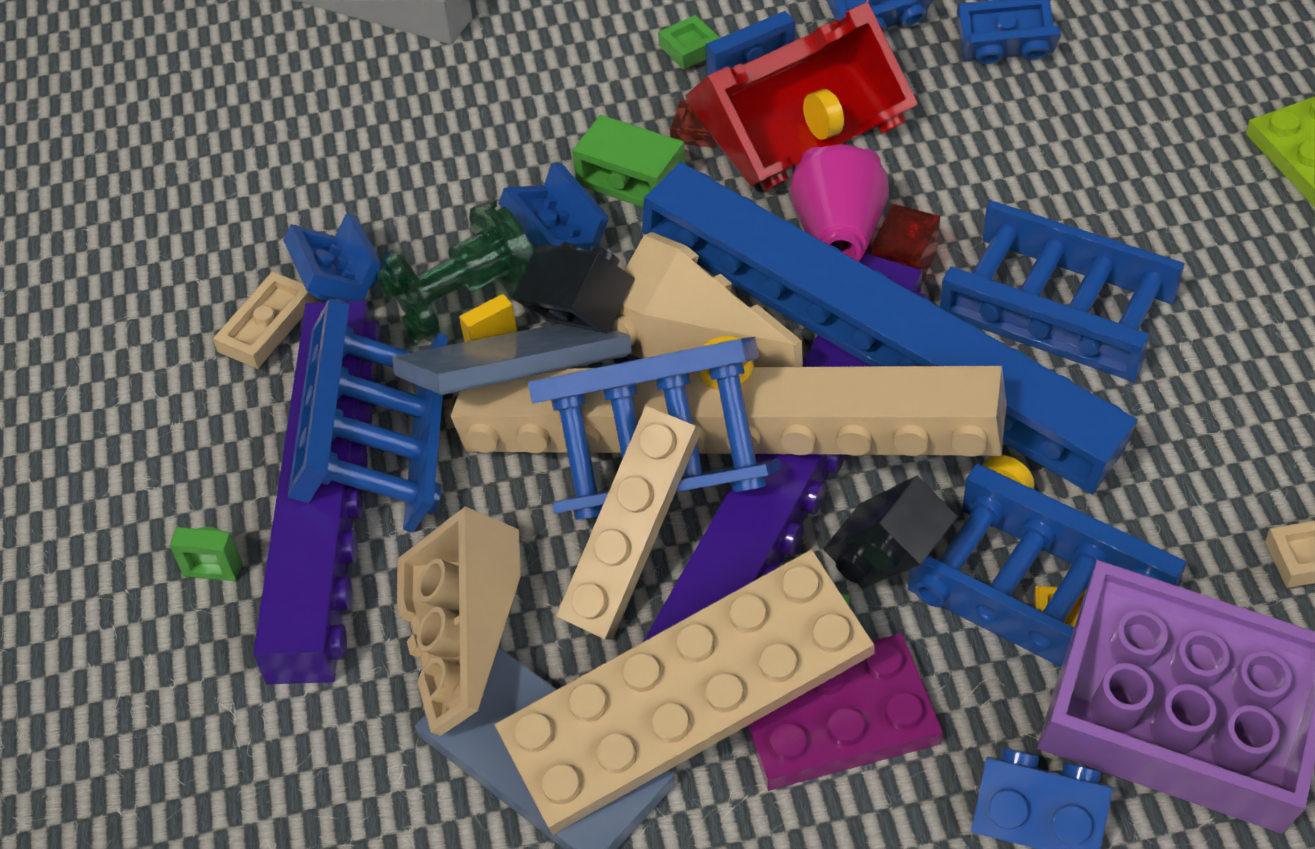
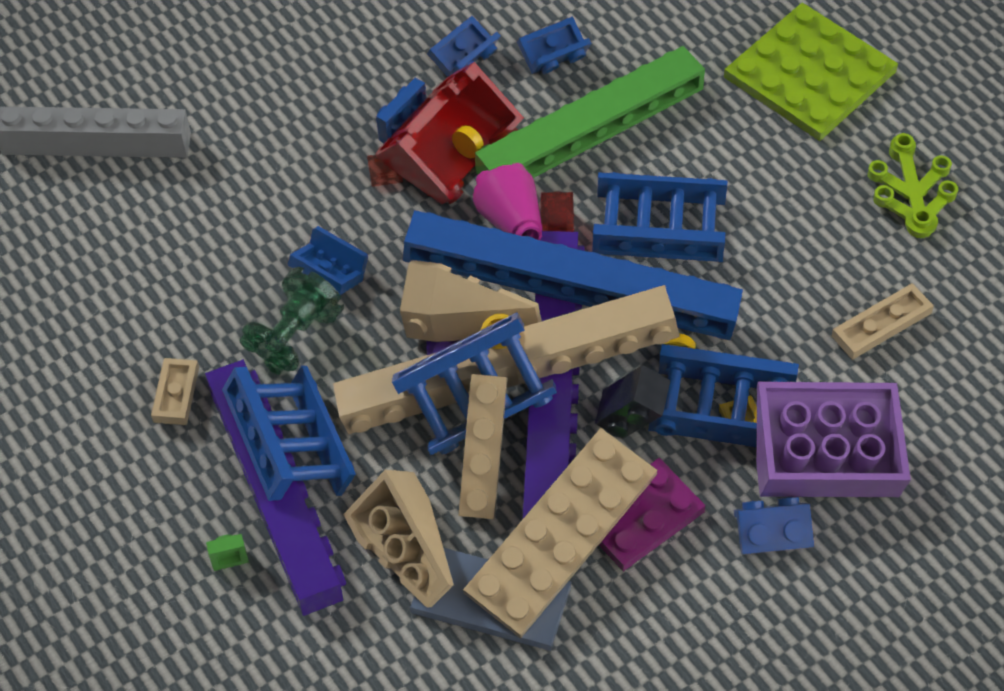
camera: 25 degrees left, 5 degrees up
(334, 265) = (204, 337): blue bracket -> none
(489, 319) = (325, 350): yellow tile -> none
(508, 357) = (358, 366): sand blue tile -> none
(573, 286) = (375, 309): black brick -> none
(624, 159) = (358, 211): bright green brick -> none
(687, 41) = (353, 112): bright green plate -> none
(1035, 130) = (597, 115): none -> bright green brick

